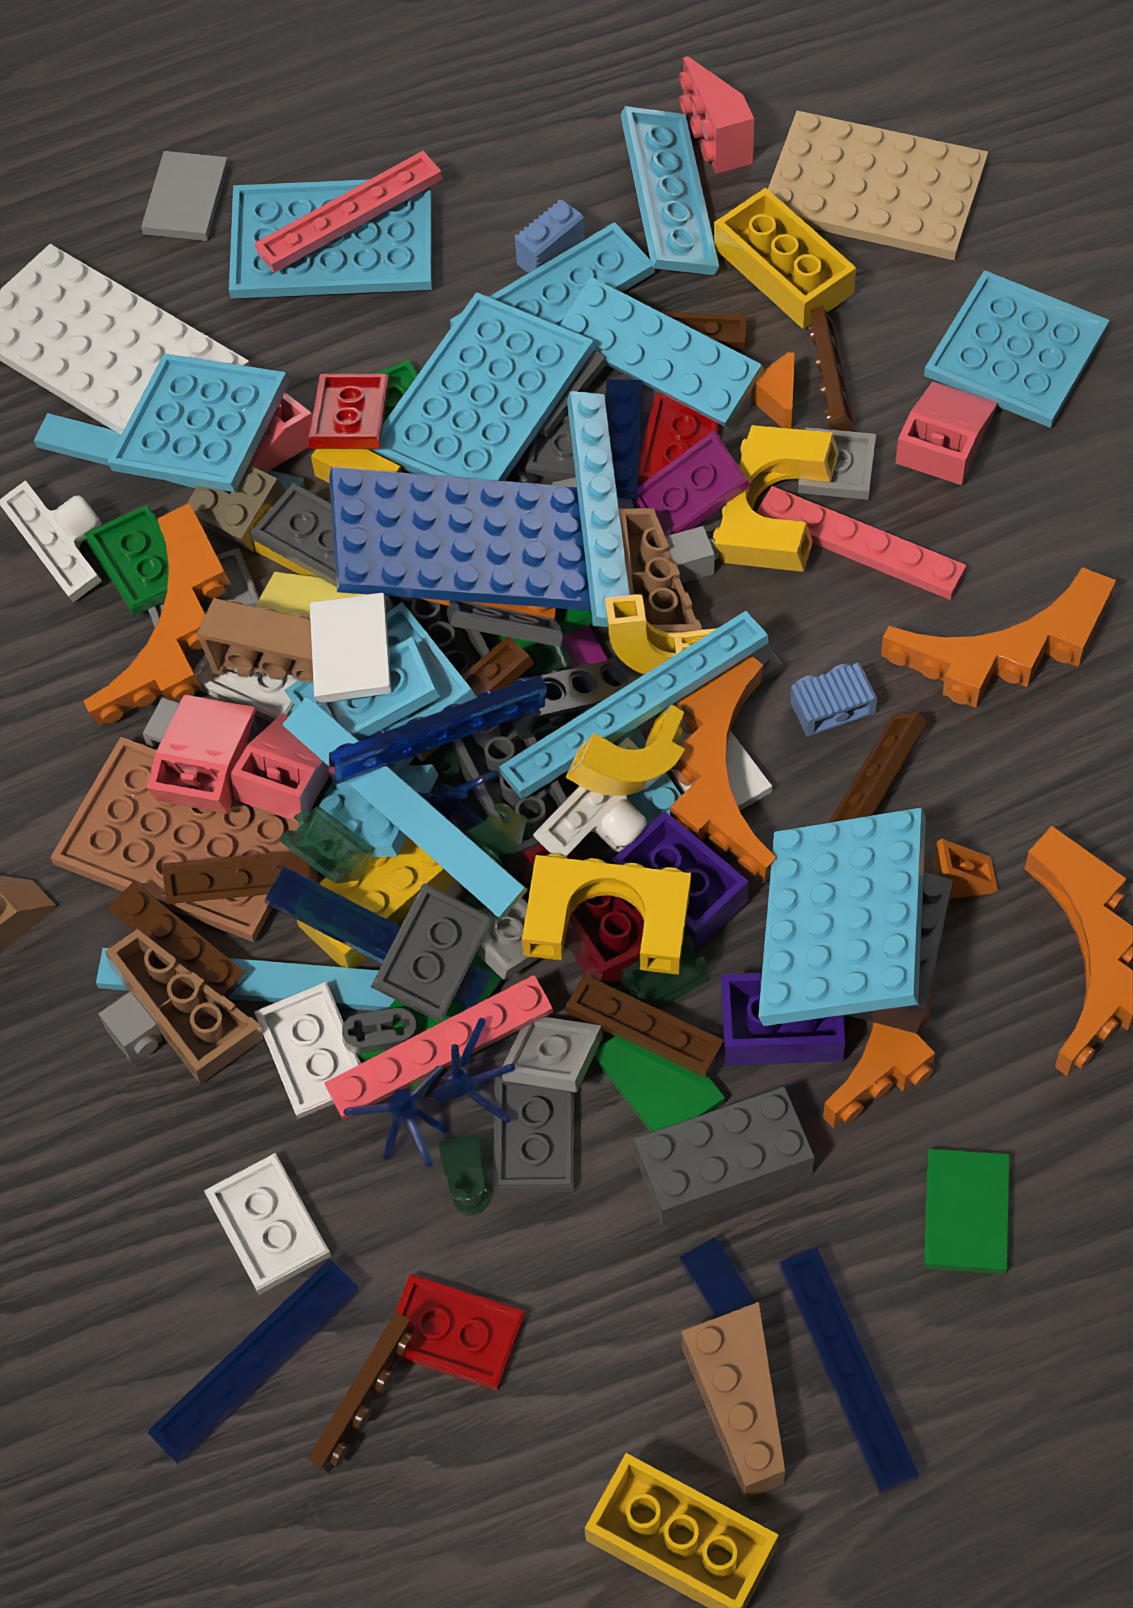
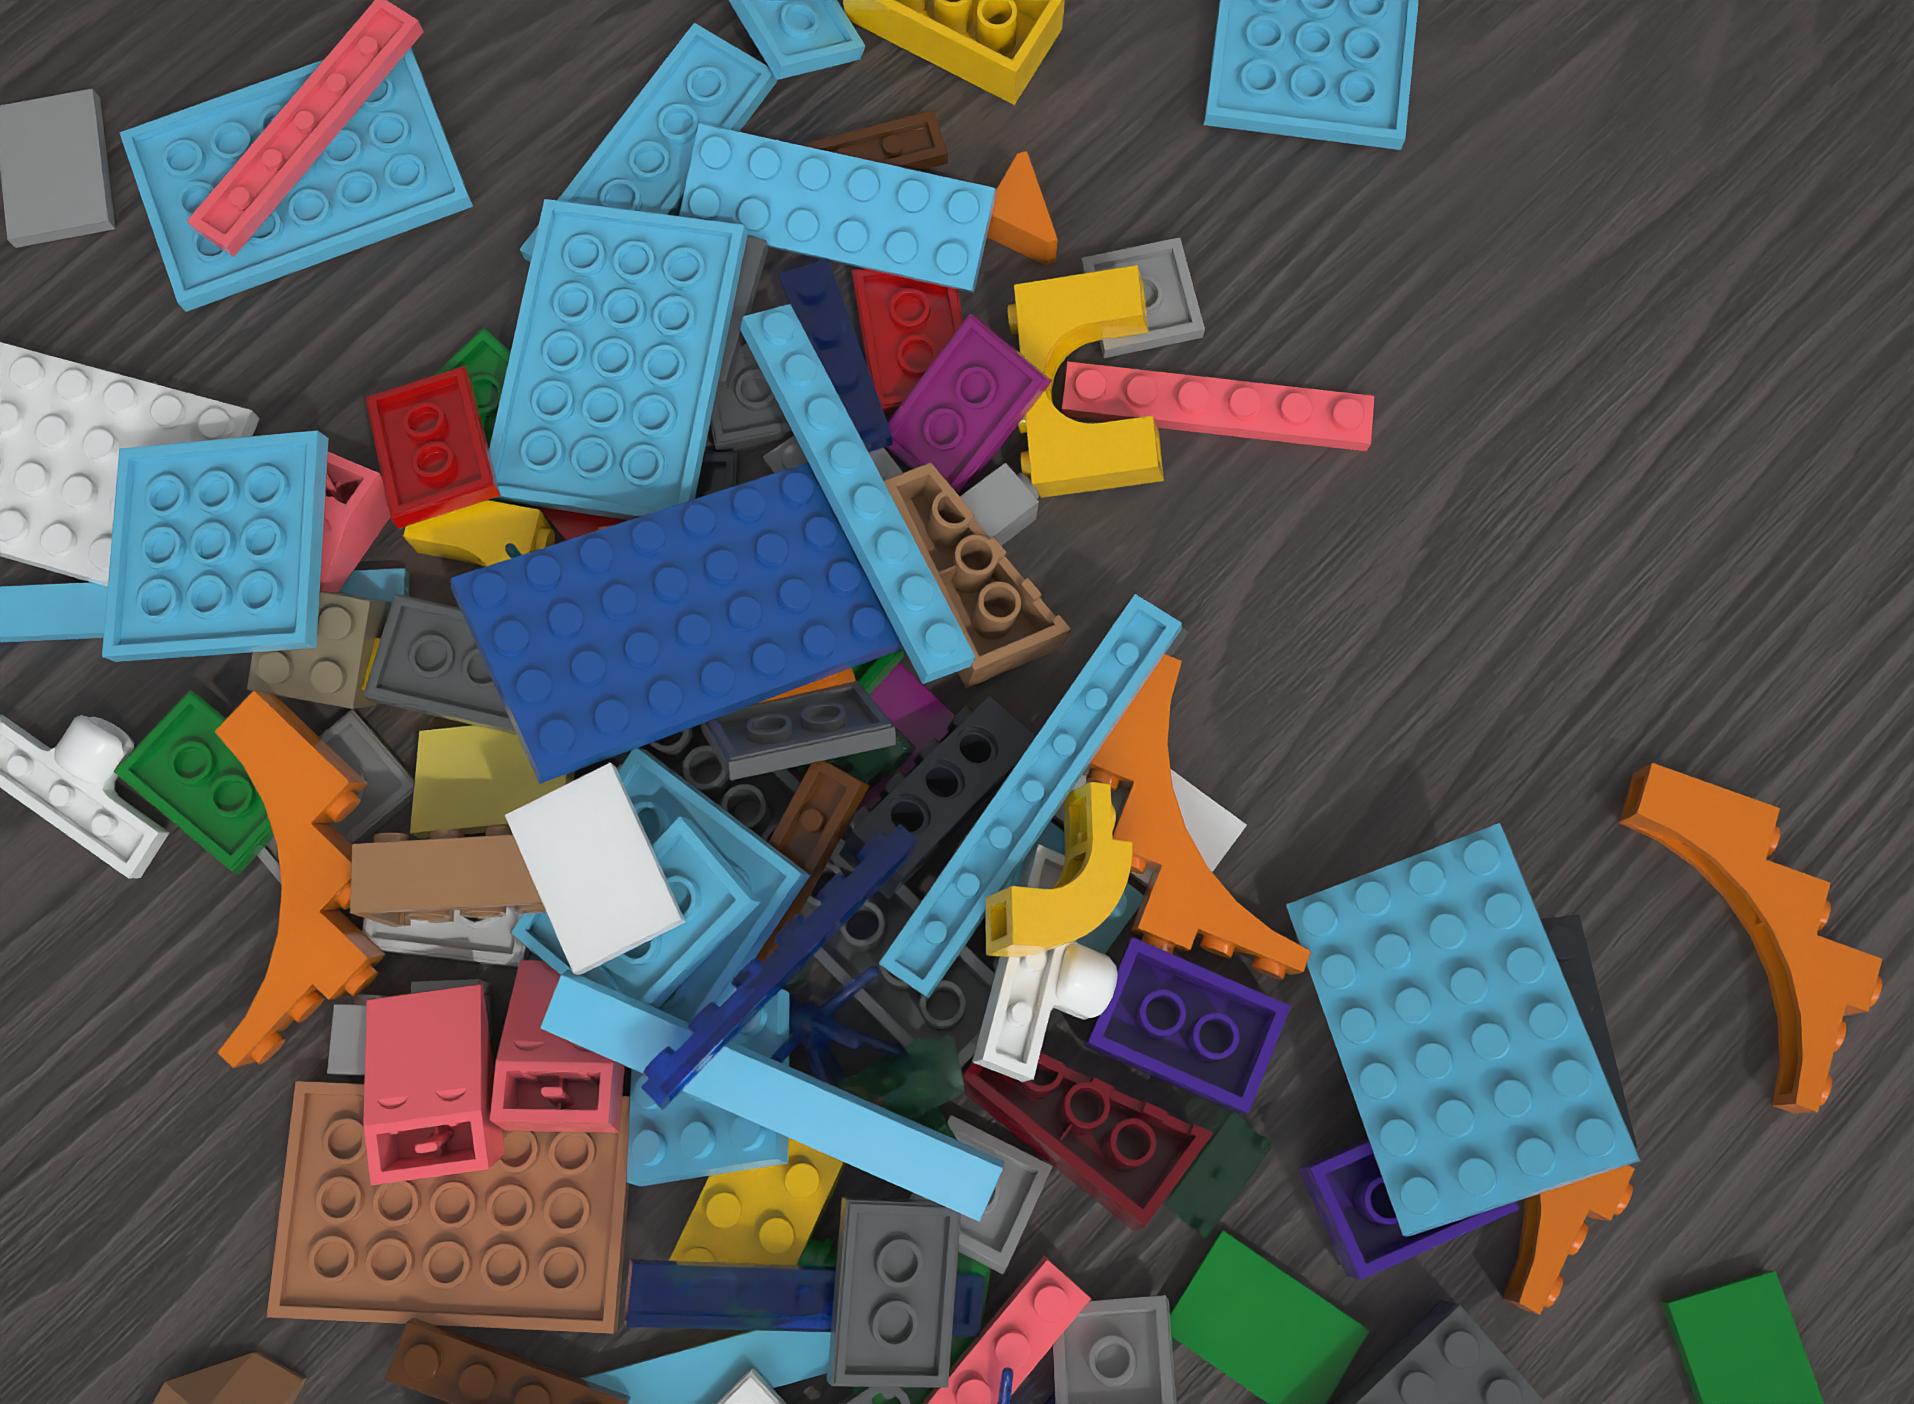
camera: 25 degrees left, 15 degrees up
(229, 876) = (562, 1258): reddish brown plate -> none
(328, 846) = (680, 1187): clear green hinge -> none
(549, 236) = (611, 74): medium blue brick -> none
(565, 883) = (1191, 1092): yellow arch -> none
(637, 641) = (1015, 685): yellow arch -> none
(645, 1026) = (1226, 1273): reddish brown plate -> none
(829, 362) = (1072, 146): reddish brown plate -> none
(832, 698) = (1277, 662): medium blue brick -> none
(880, 767) = (1380, 760): reddish brown plate -> none
(944, 432) = (1272, 203): coral slope -> none
(968, 869) = (1555, 864): orange slope -> none
(1013, 653) = (1441, 547): orange arch -> none

